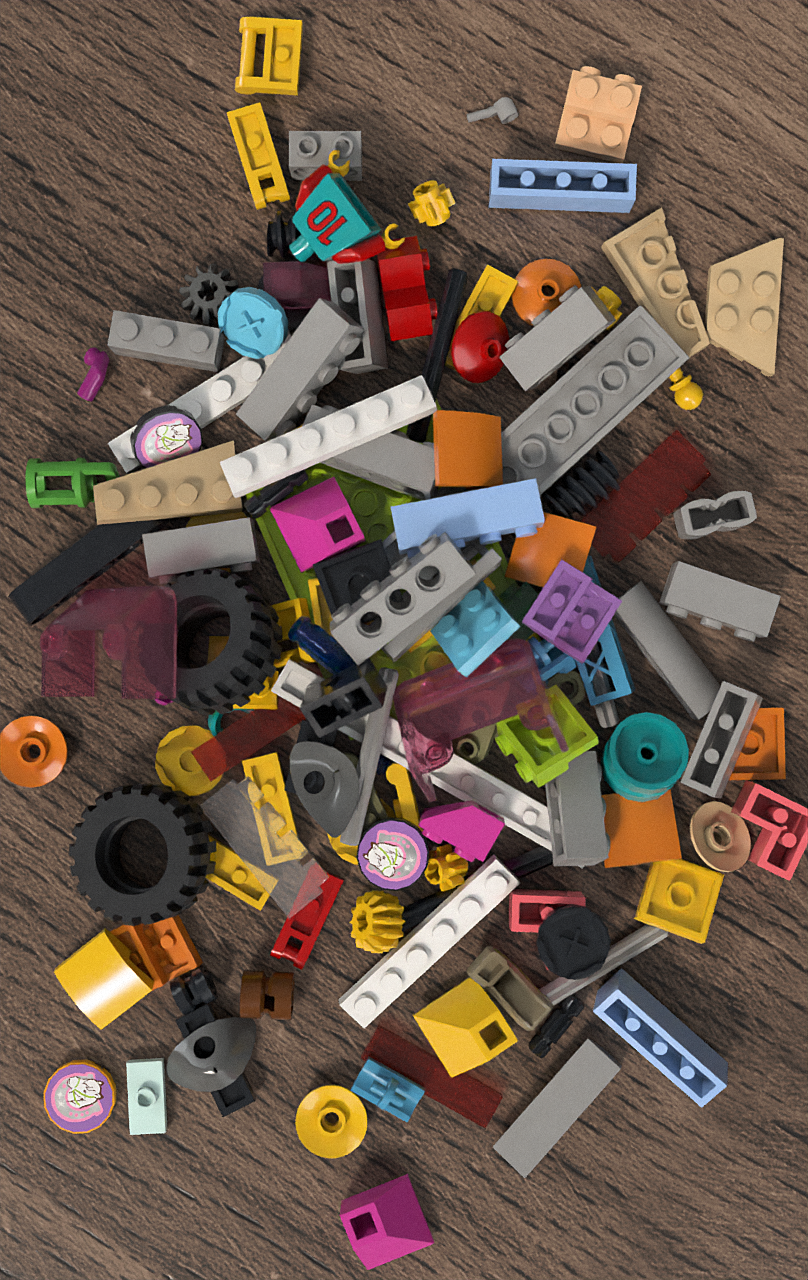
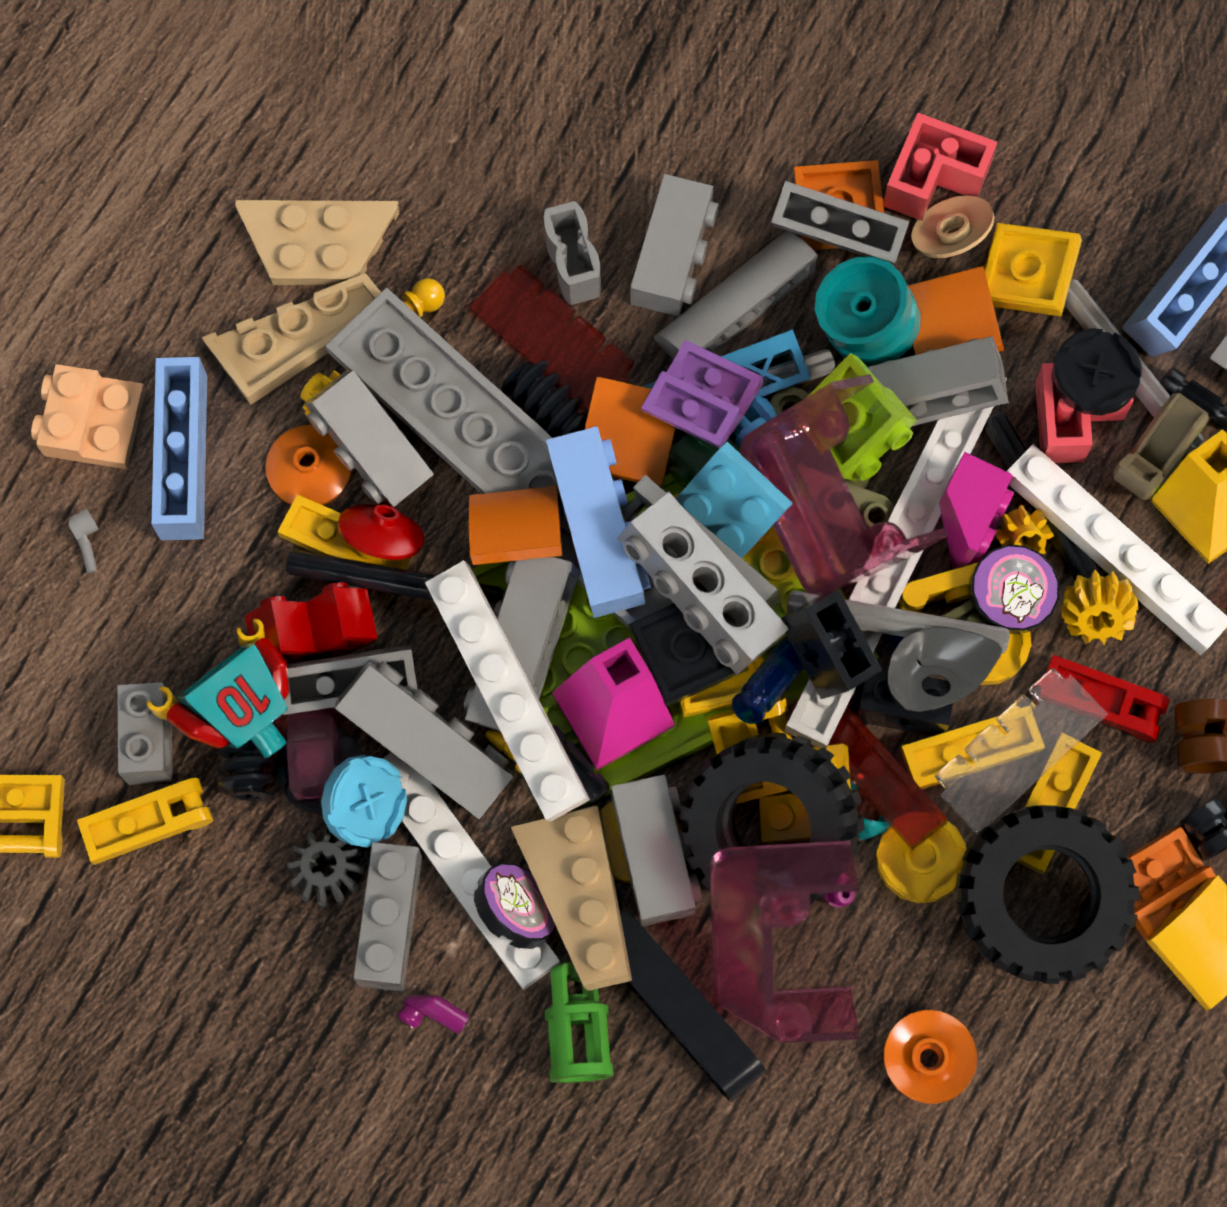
camera: 95 degrees left, 15 degrees down
(431, 203) = (202, 602): yellow gear -> none

